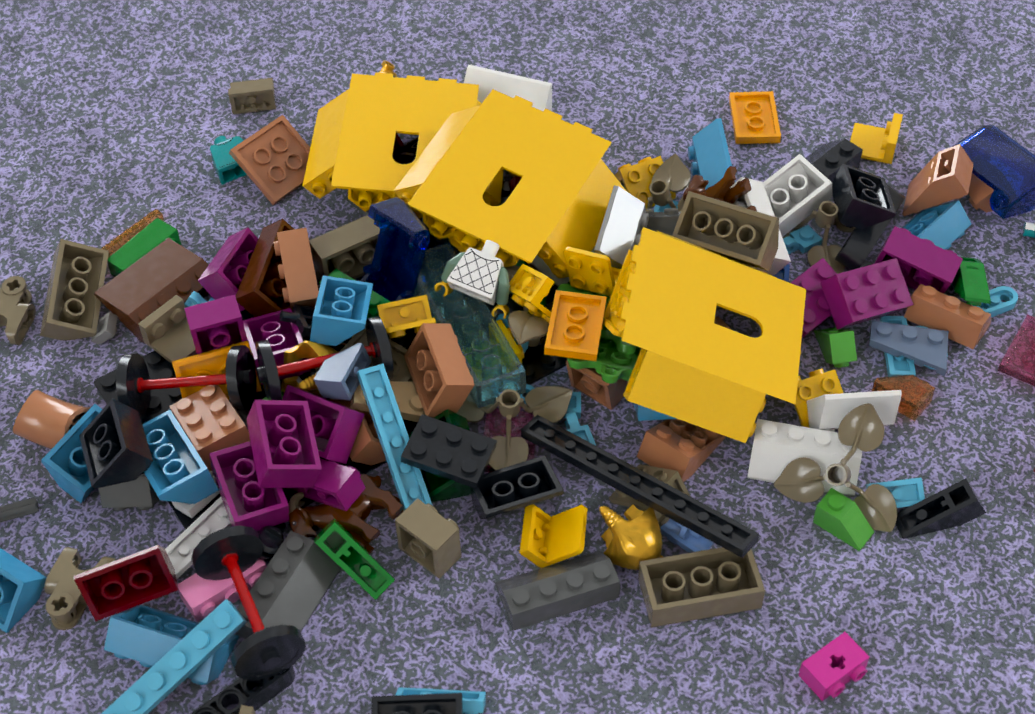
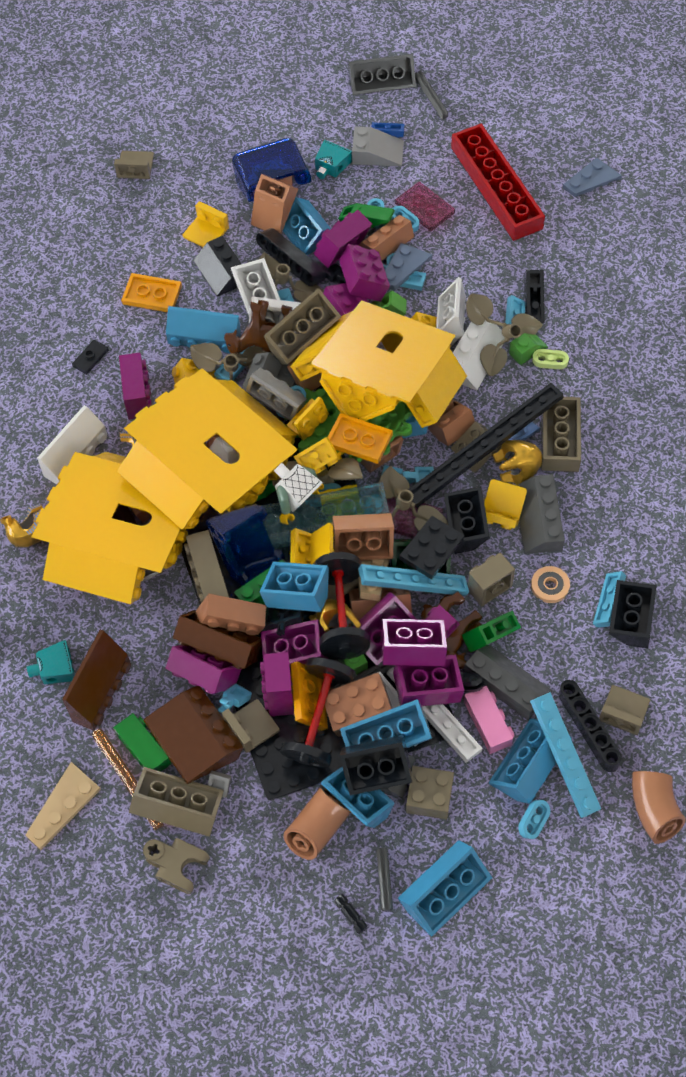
camera: 75 degrees left, 10 degrees up
(66, 600) = (470, 823): dark tan piece -> none
(73, 210) = (65, 801): none -> tan wing
(87, 662) = (534, 820): none -> medium azure plate
(109, 531) = (429, 792): none -> dark tan brick
(127, 582) = (490, 771): dark red slope -> none
(206, 184) = (96, 681): none -> reddish brown slope
(268, 649) = (574, 680): black piece -> none
(274, 159) = (75, 624): nougat plate -> none
(338, 373) = (358, 596): sand blue slope -> none
(455, 637) = (554, 574): none -> light nougat tile
(613, 120) = (134, 383): none -> magenta brick
(642, 91) = (90, 357): none -> black plate
(834, 667) = (630, 382): dark pink brick -> none
(835, 556) = (550, 359): none -> yellowish green plate
(861, 198) = (275, 248): black slope -> none
(915, 393) = (440, 280): clear orange slope -> none
(940, 57) = (134, 164): none -> dark tan bracket
(998, 335) = (400, 210): none -> medium azure plate

